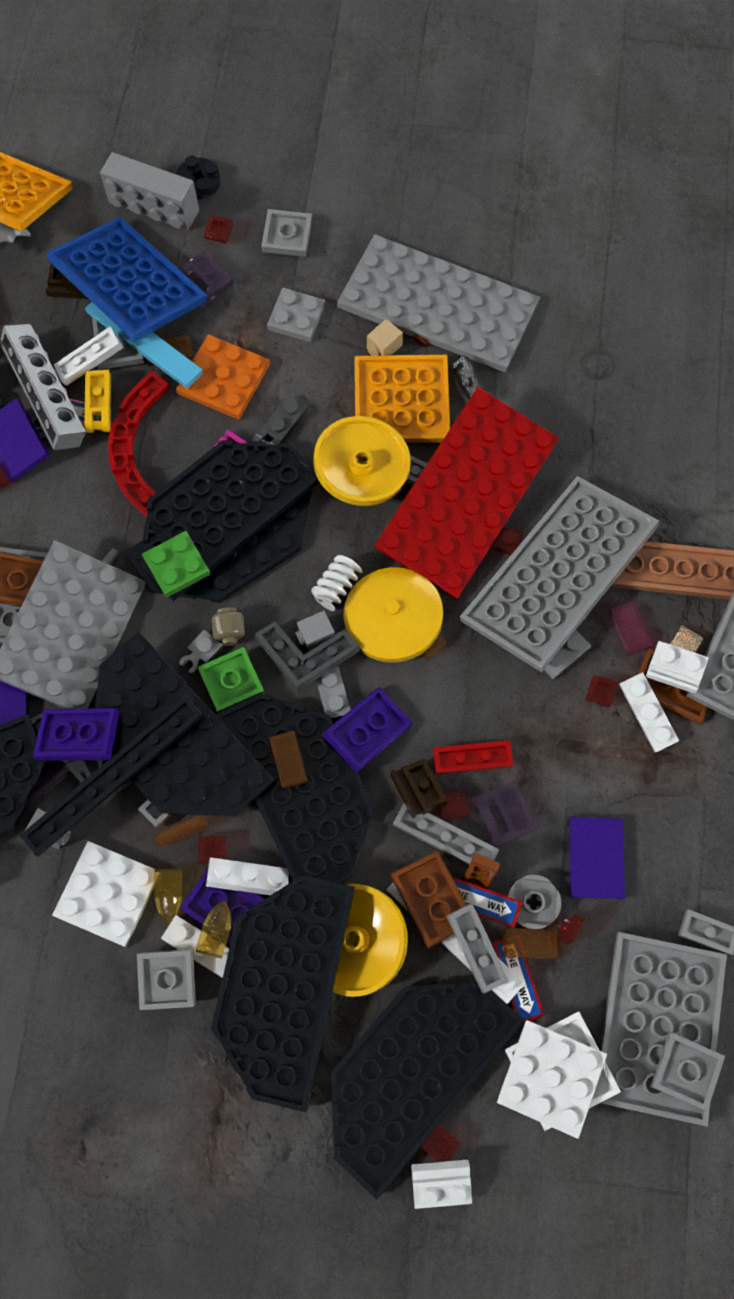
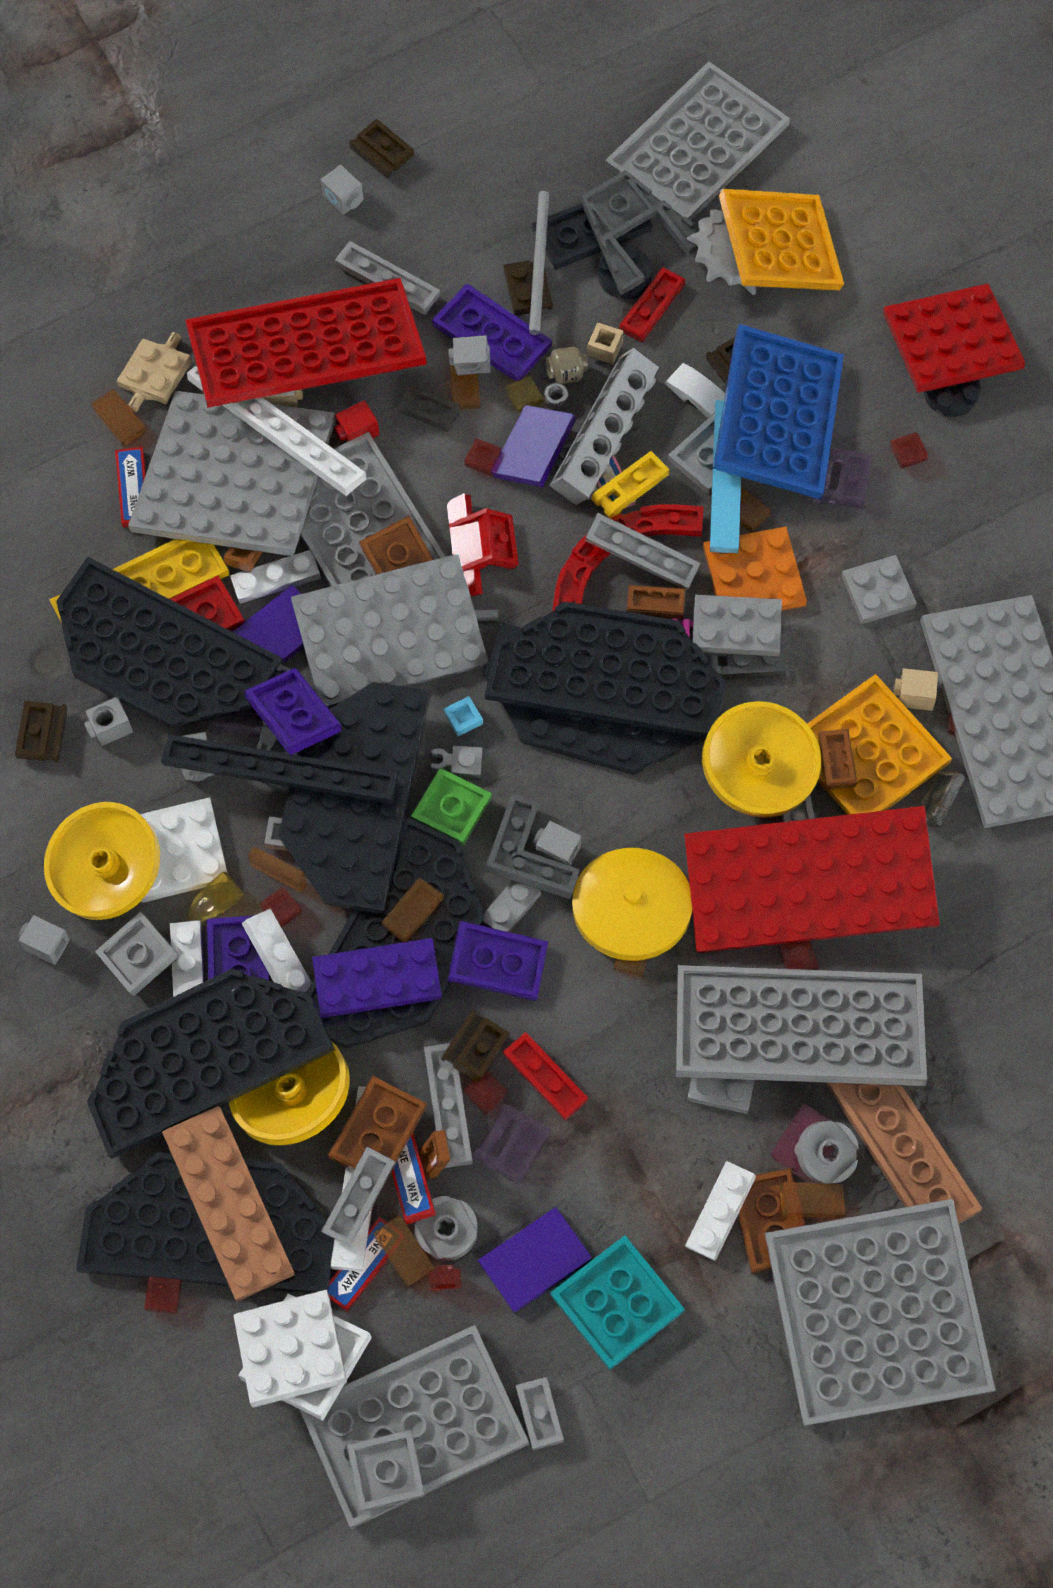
camera: 55 degrees right, 5 degrees down
(49, 520) = (480, 540): none -> red plate
(59, 316) = (695, 387): none -> white slope
(74, 955) = (102, 860): none -> yellow dish
(88, 356) = (668, 441): white plate -> none
(98, 1043) = (43, 939): none -> light grey brick
(150, 191) = (889, 360): light grey brick -> none
(151, 428) = (642, 551): none -> light grey plate
(171, 625) = (463, 716): none -> medium azure plate
(172, 141) = (953, 338): none -> red plate
(176, 564) = (519, 673): bright green plate -> none
(192, 447) = (656, 601): none -> dark orange plate
(215, 931) = (207, 962): clear yellow plate -> none
(228, 626) = (500, 765): dark tan head -> none
(253, 409) = (737, 625): none -> light grey plate
(286, 232) = (960, 514): light grey plate -> none
(319, 820) = (376, 977): none -> dark purple plate
(334, 581) = (620, 827): white piece -> none
(400, 418) = (837, 759): none -> dark orange plate
(409, 1047) = (228, 1203): none -> nougat plate
(441, 1184) = (129, 1318): white plate -> none
(601, 691) = (707, 1151): clear red plate -> none
(649, 625) = (810, 1152): none -> light grey plate
(665, 824) = (617, 1302): none -> teal plate
(677, 667) = (783, 1201): white plate -> none

